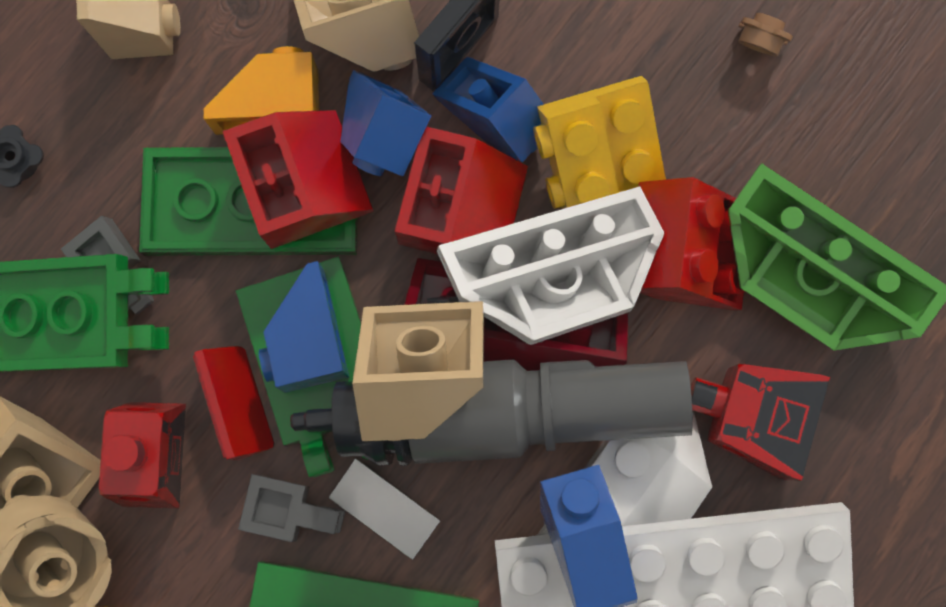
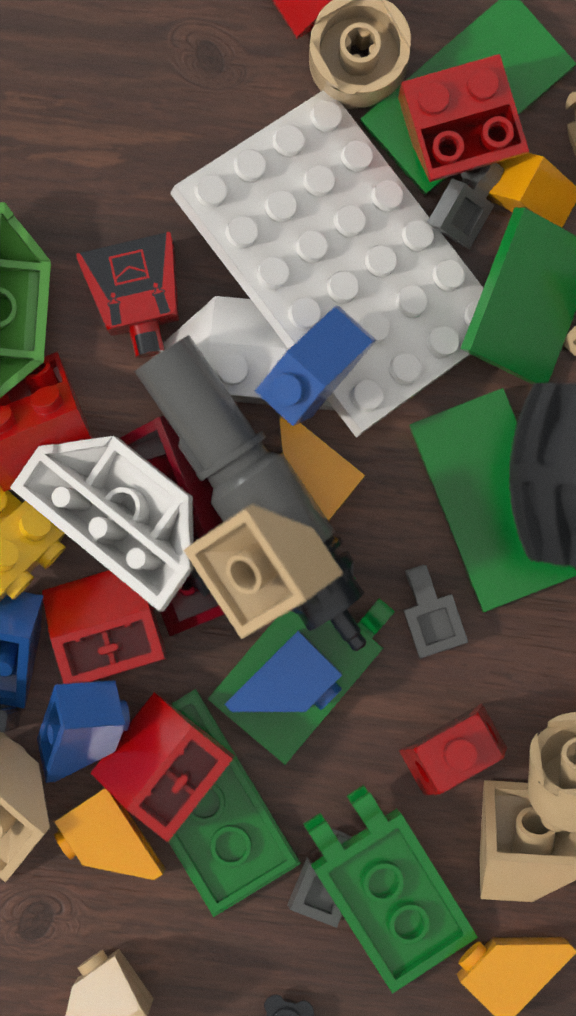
camera: 120 degrees left, 5 degrees up
(233, 402) = (372, 709): red slope -> none
(384, 509) = (384, 540): white sticker -> none
(486, 486) = (320, 468): none -> light orange slope

